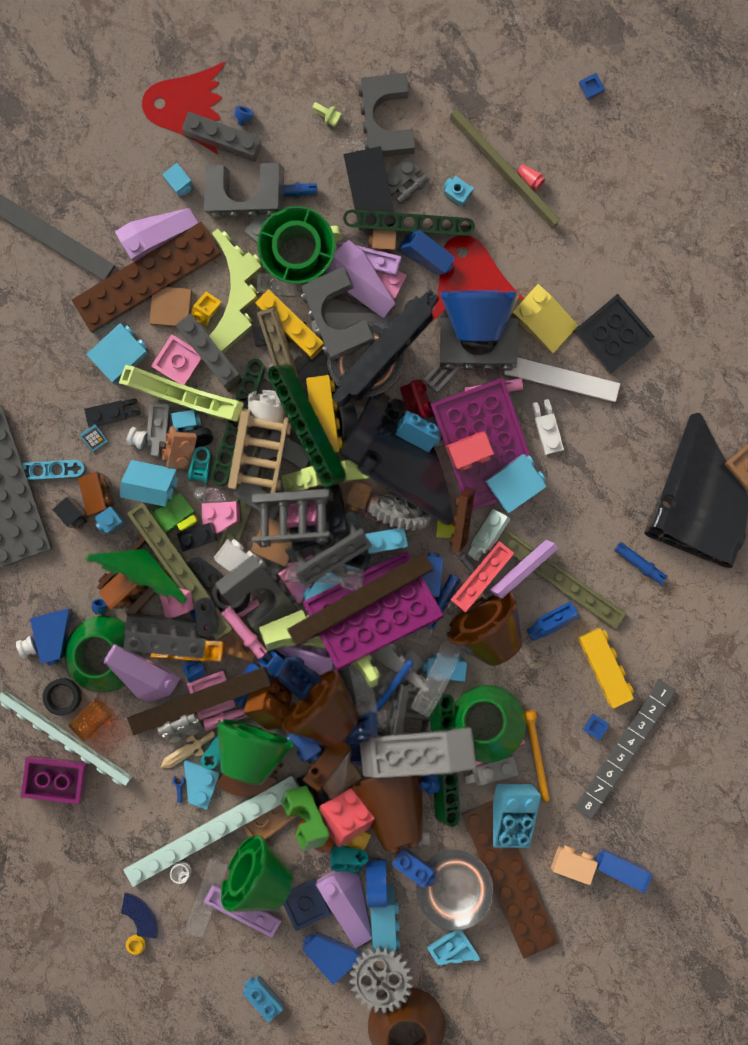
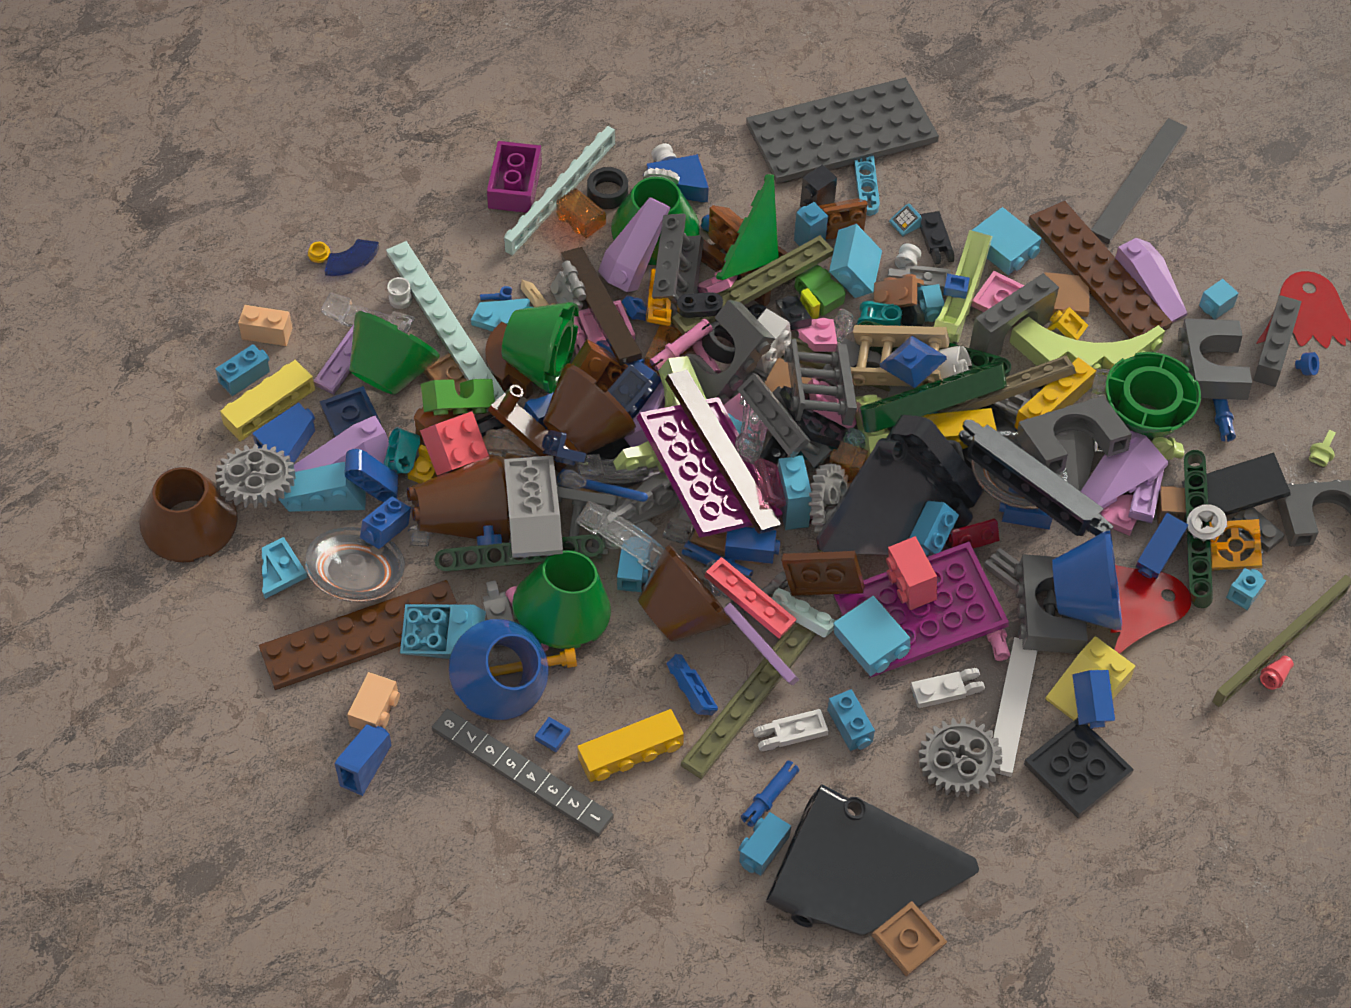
camera: 90 degrees right, 30 degrees down
(64, 650) = (668, 174): none -> white gear
(183, 399) = (956, 286): none -> blue plate
(218, 984) = (265, 325): none -> light nougat brick
(273, 440) = (913, 361): none -> blue slope
(293, 975) = (267, 400): none -> light yellow brick
(341, 490) = (855, 438): none -> clear light blue plate
(385, 562) = (770, 483): none -> clear pink tile
(408, 180) = (1255, 558): none -> light orange piece
(414, 205) = (1206, 513): none -> white gear
(535, 774) = (474, 681): none -> blue cone
(567, 318) = (1093, 698): none -> blue brick
(581, 501) = (851, 720): none -> dark azure brick
(587, 544) = (792, 730): none -> white hinge
(625, 428) = (952, 775): none -> light grey gear
(684, 568) = (764, 844): none -> dark azure brick

